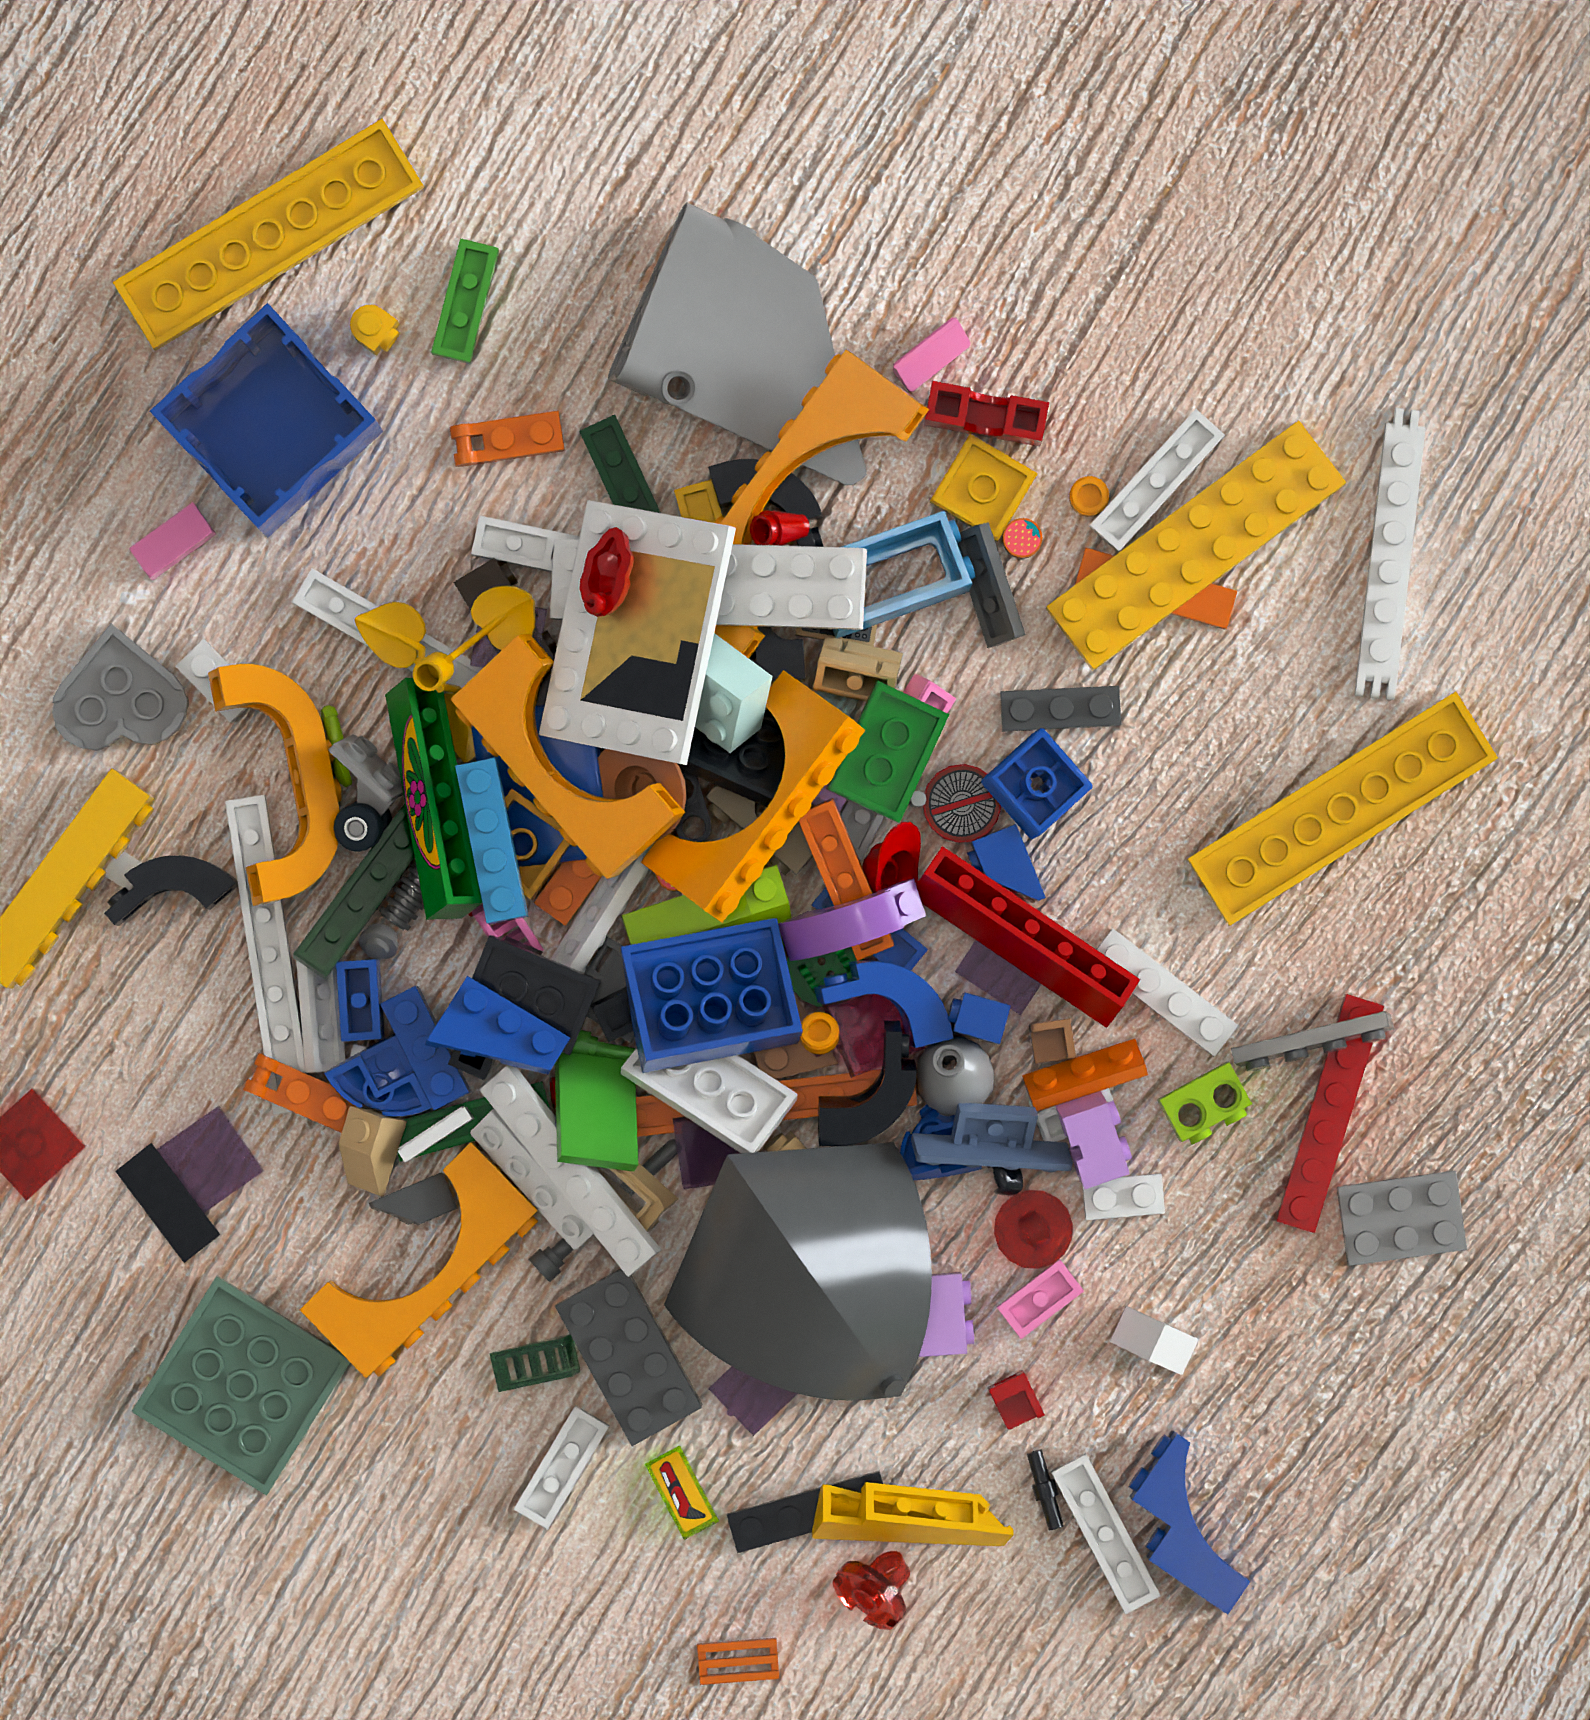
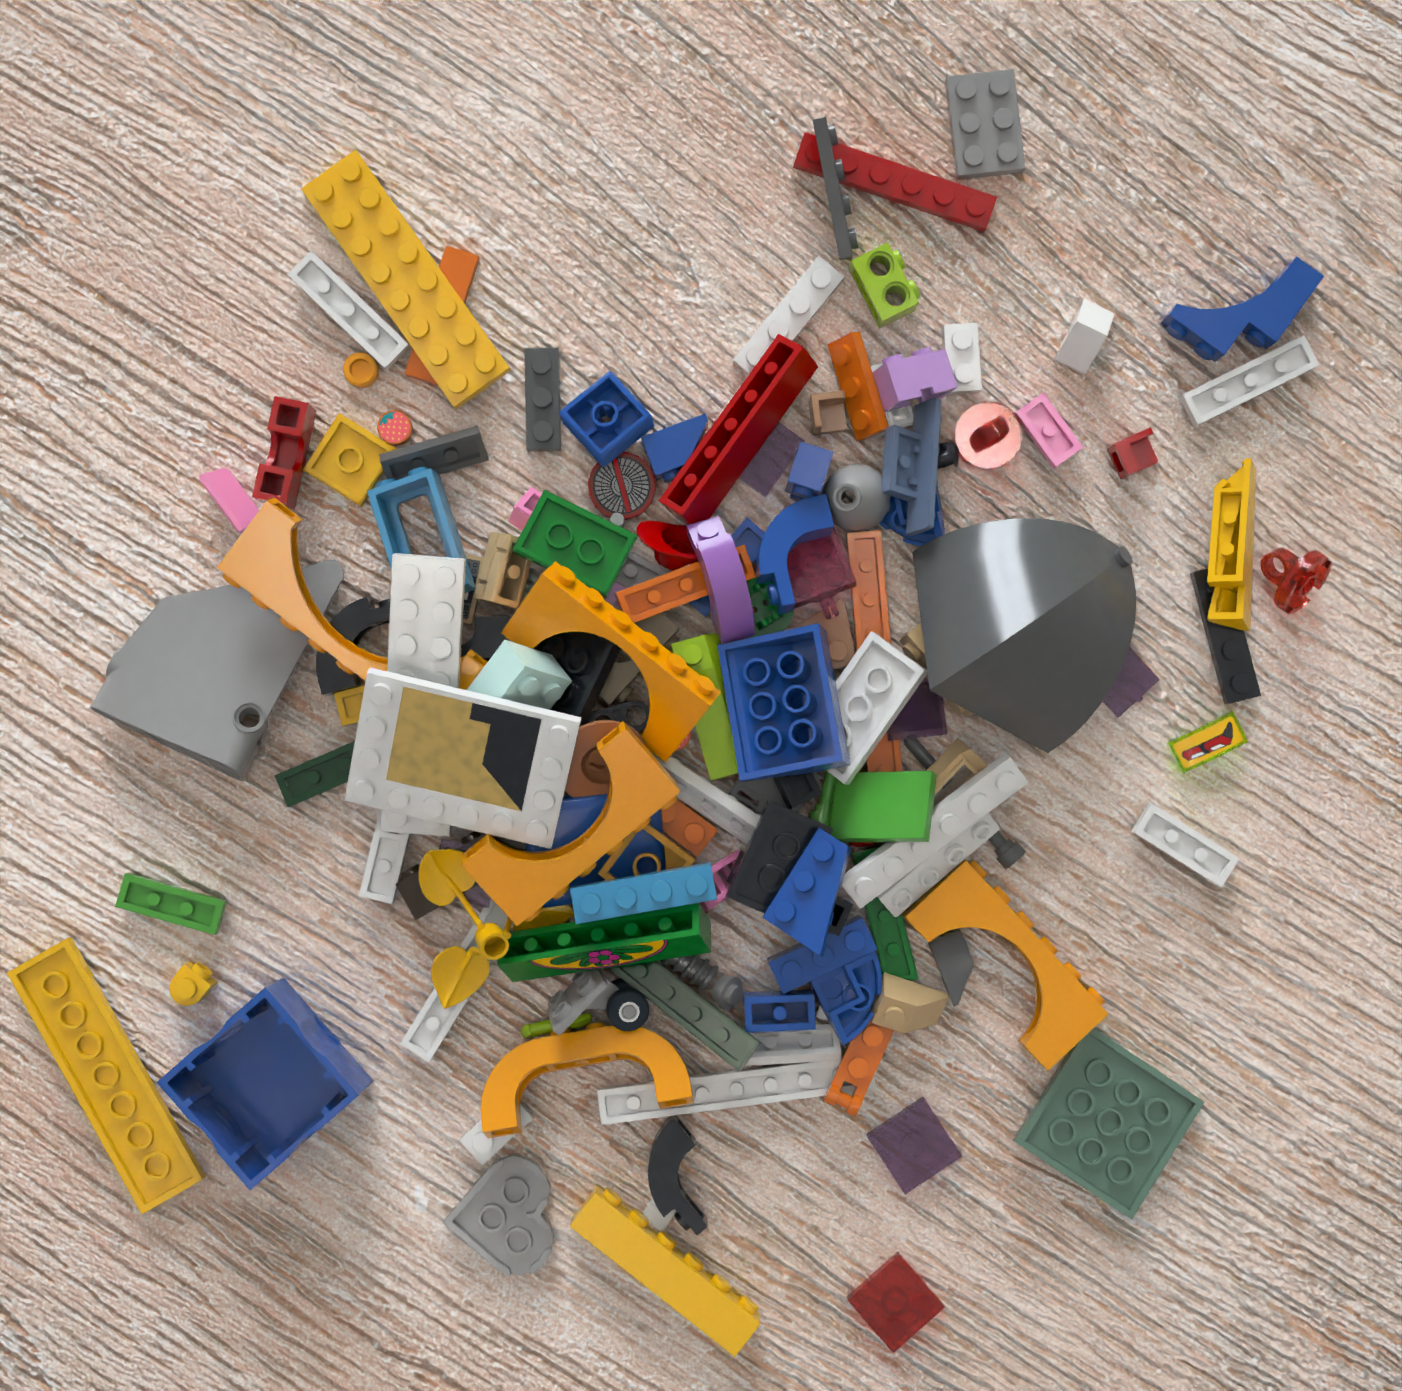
camera: 90 degrees left, 0 degrees up
(167, 1202) = (949, 1182): black sticker -> none
(172, 541) = (373, 1165): bright pink slope -> none
(435, 1133) = (897, 948): white tile -> none
(508, 438) = (293, 869): orange plate -> none
(567, 1356) = (1088, 837): clear green slope -> none
(607, 573) = (408, 783): red arm -> none
(629, 1356) = (1092, 784): dark grey brick -> none
(771, 1659) = (1364, 696): orange tile -> none
(778, 527) = (375, 633): red cone -> none
(819, 1033) = (819, 609): light orange tile -> none
(869, 1113) = (885, 564): black arch -> none
(946, 1327) = (1073, 507): lavender brick -> none
(1045, 1489) = (1210, 431): black bar -> none
(1342, 808) = (635, 161): yellow plate -> none
(1390, 555) = (420, 116): white hinge -> none

